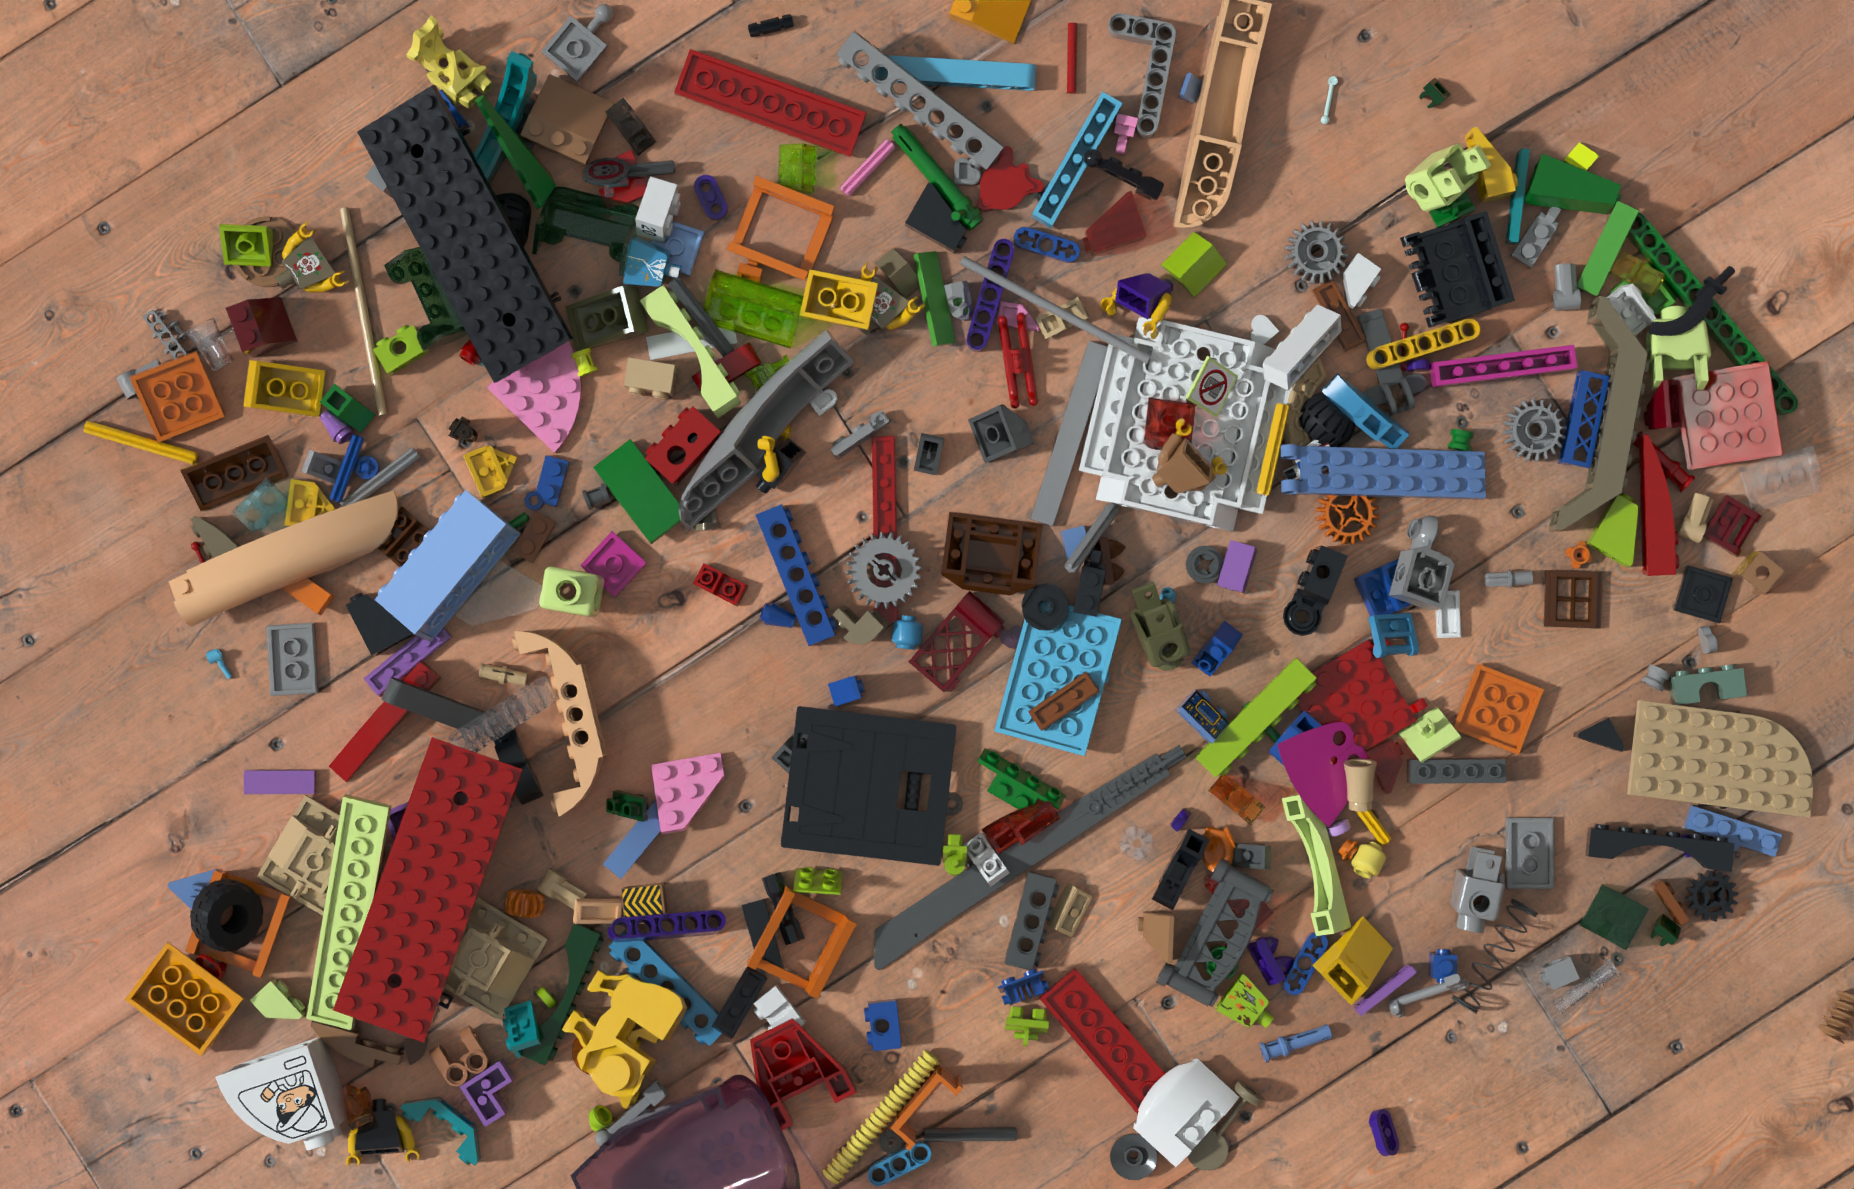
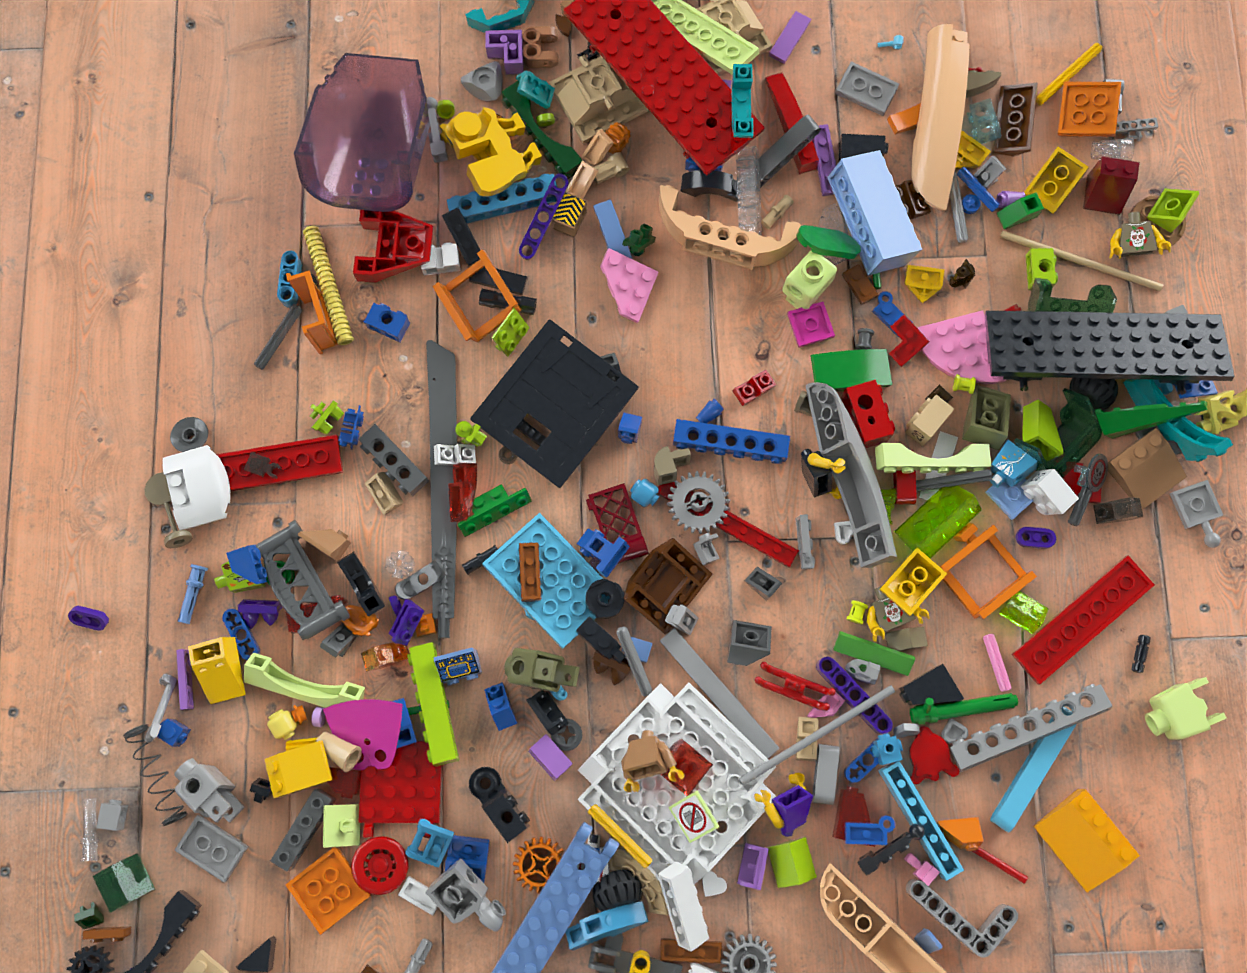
camera: 120 degrees right, 10 degrees down
(425, 775) = (741, 100): none -> teal slope
(516, 595) = (828, 242): none -> green tile
(540, 1094) = (484, 82): none -> light grey hat
(550, 915) = (597, 148): none -> light nougat tile
(569, 444) = (911, 343): none -> red tile
(591, 254) = (1041, 430): none -> lime slope
(613, 381) = (941, 392): none -> dark brown tile
(901, 339) = (857, 612): none -> neon yellow bush
(929, 533) = (705, 548): none -> light grey bracket
(994, 222) = (906, 729): none -> light grey tile
(997, 629) = (609, 554): none -> blue tile
(1017, 516) = (682, 618): none -> light grey slope
(1033, 225) = (894, 748): none -> dark azure brick
(1064, 112) = (962, 832): none -> orange slope
(1080, 763) = (477, 561): none -> black pin
(1087, 279) = (825, 774): none -> light grey beam
(1121, 1058) = (260, 465): none -> clear smoke plate
(1122, 205) = (868, 832): none -> blue hinge
(1149, 818) = (411, 586): none -> piece
(1181, 779) = (426, 625): none -> orange tile
(1191, 798) = (406, 622): none -> dark purple bracket
(1194, 596) = (547, 712): none -> black hinge
(1221, 301) = (752, 866): none -> medium lavender hinge
(1233, 998) = (247, 564): none -> blue slope
(1402, 812) = (298, 769): none -> yellow slope
(1442, 838) = (261, 789): none -> black tile
(1444, 672) = (379, 865): none -> red wheel

